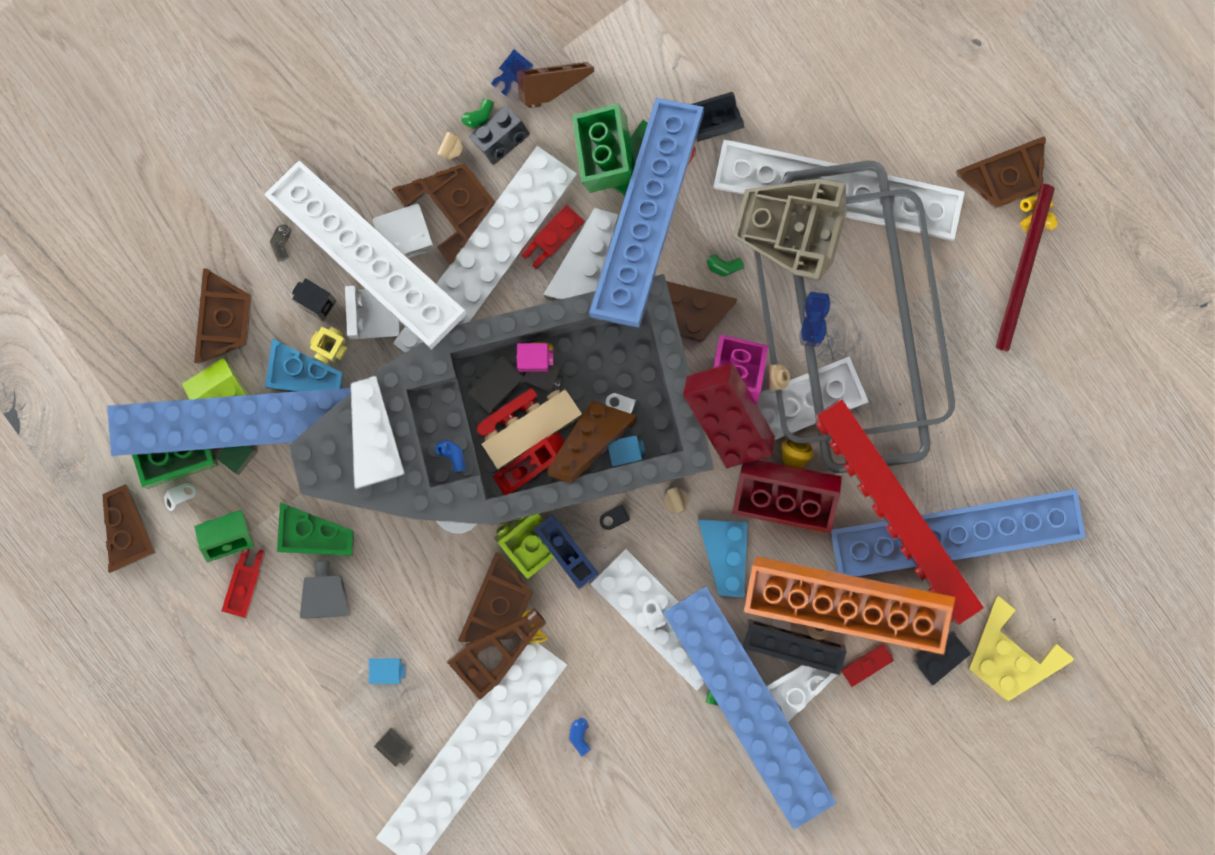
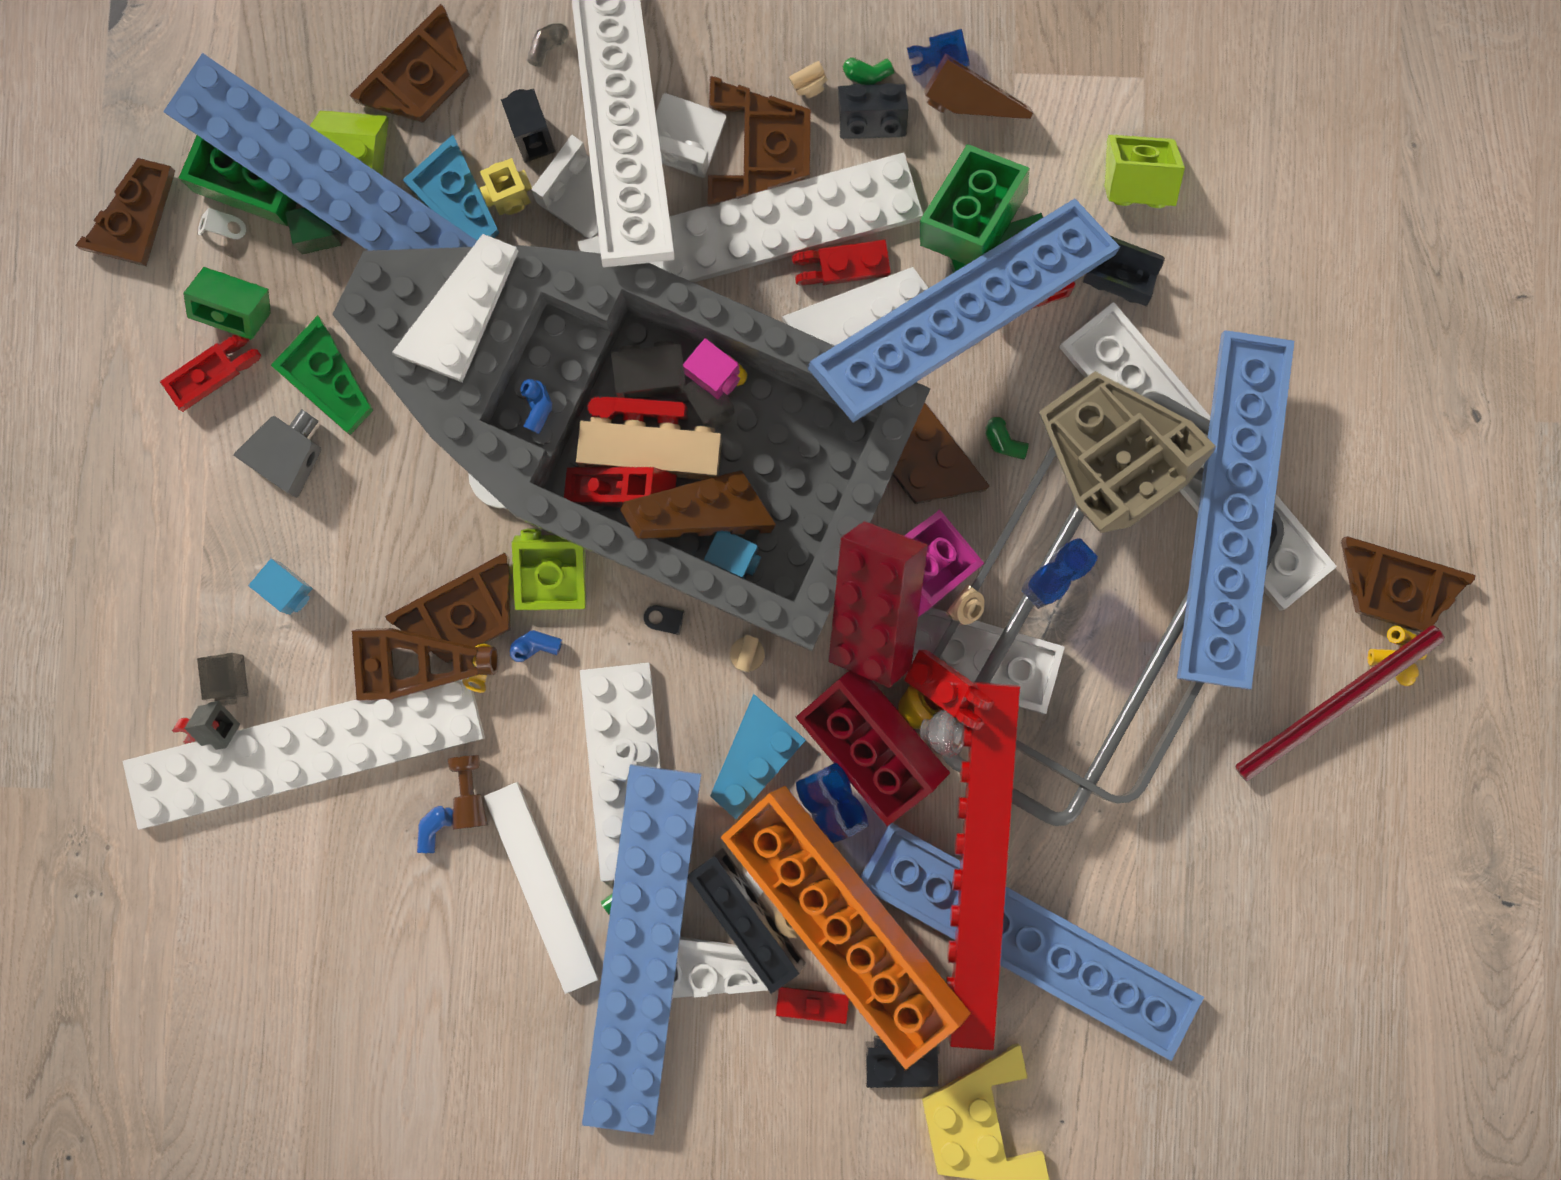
camera: 30 degrees right, 0 degrees up
(409, 778) = (209, 725): none -> pearl dark grey piece
(551, 589) = (533, 642): none -> blue arm
(566, 552) = (578, 614): dark blue slope -> none
(590, 708) = (467, 808): none -> reddish brown piece
(625, 404) = (775, 504): white piece -> none
(666, 720) = (541, 888): none -> white tile
(680, 49) = (1143, 171): none -> lime slope
(790, 545) = (831, 802): none -> clear blue brick
(803, 431) = (947, 688): none -> red hinge
(821, 456) = (943, 734): none -> clear brick
(883, 206) = (1236, 510): none -> medium blue plate

